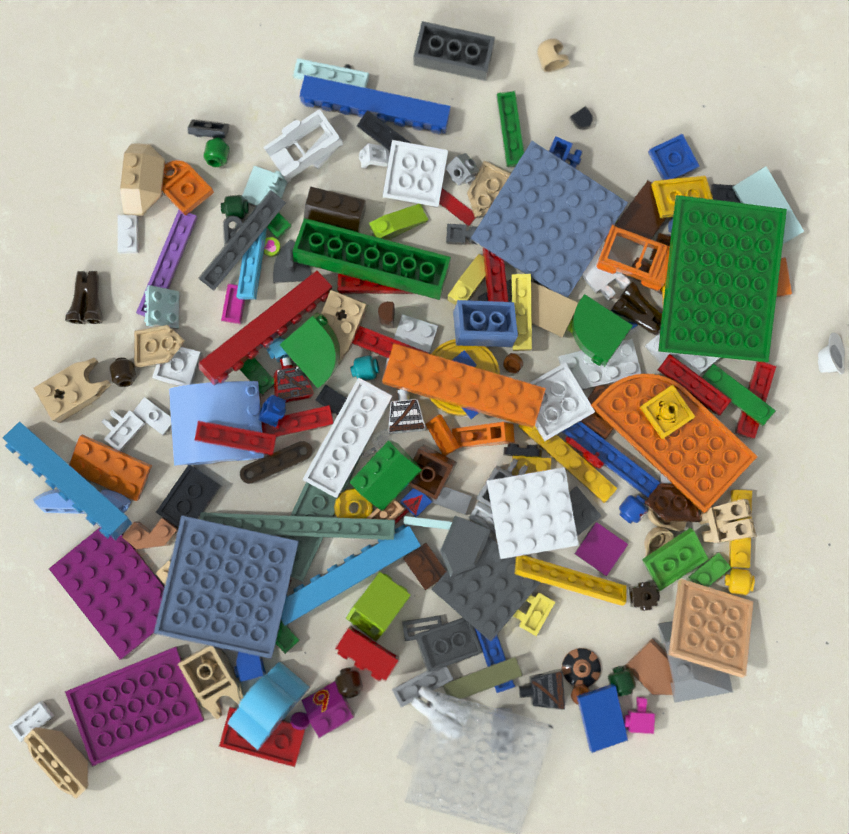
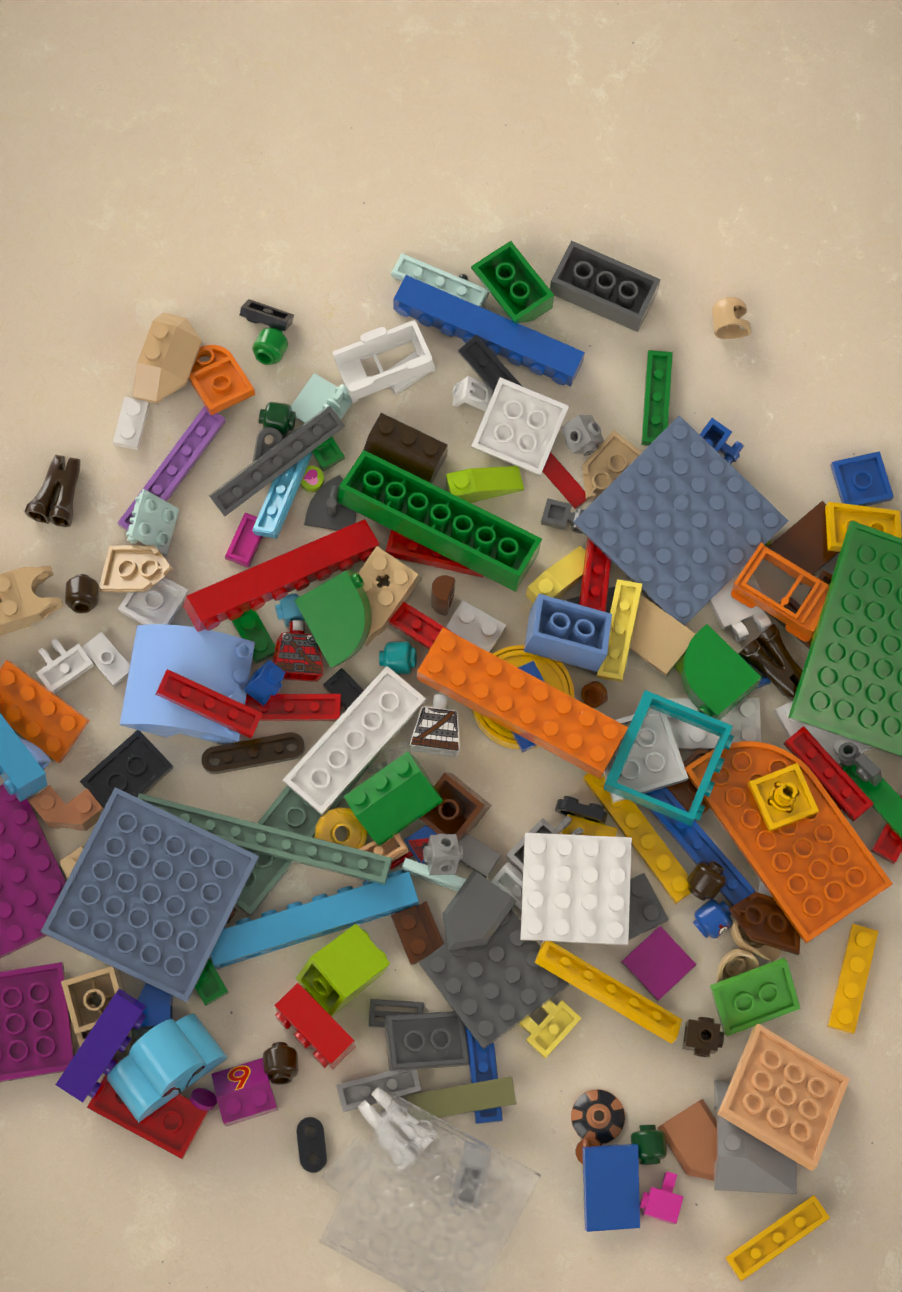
camera: 10 degrees right, 10 degrees down
(217, 705) = (101, 1045): none -> dark purple brick
(384, 734) = (311, 1144): none -> black plate
(386, 64) = (514, 284): none -> green slope
(430, 508) = (443, 854): none -> light grey brick
(442, 435) = (480, 766): orange plate -> none
(485, 435) = (536, 778): orange slope -> none
(545, 690) = (542, 1133): torso -> none
(582, 119) = (753, 405): black tile -> none
(589, 457) = (668, 836): red piece -> none
(613, 399) = (684, 714): none -> teal window
(623, 483) = (706, 880): none -> dark brown head
(710, 571) = (801, 1025): bright green plate -> none
(721, 376) = (865, 767): none -> dark grey plate
(721, 522) = (836, 963): tan hips -> none
(725, 725) = (777, 1238): none -> yellow plate
(739, 581) = (836, 1047): yellow head -> none

